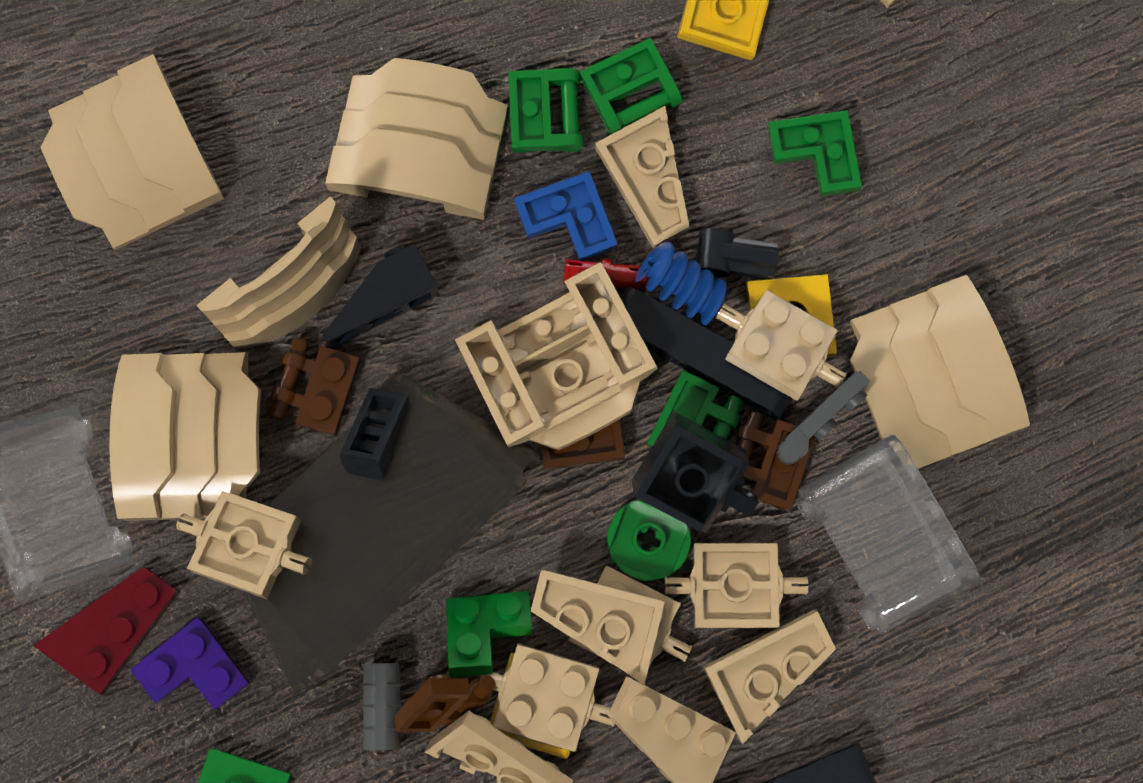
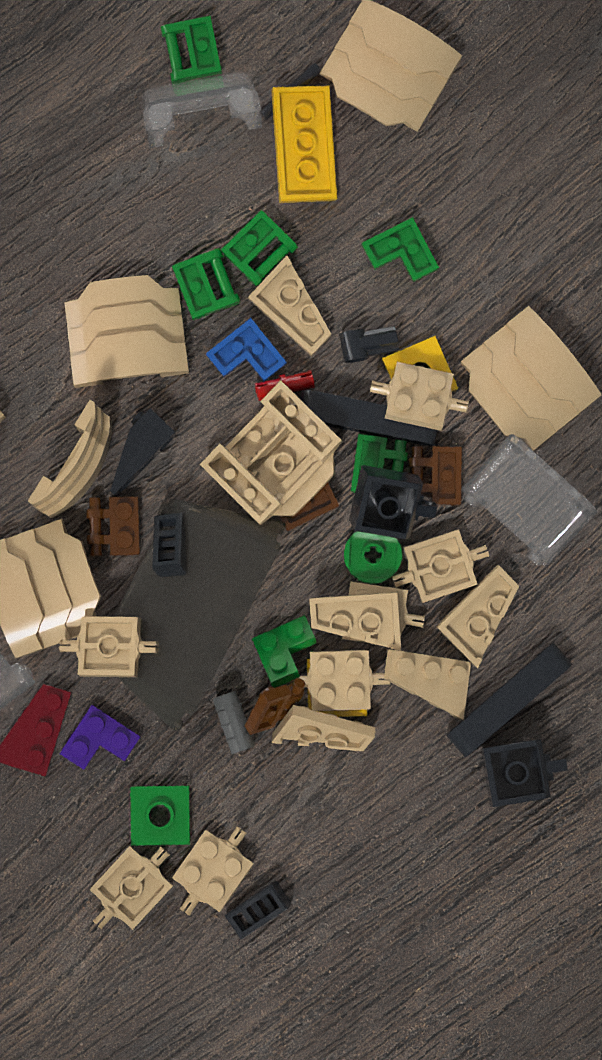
camera: 20 degrees left, 5 degrees up
(684, 281) = (339, 373): blue piece -> none
(821, 420) = (461, 438): dark grey hinge -> none

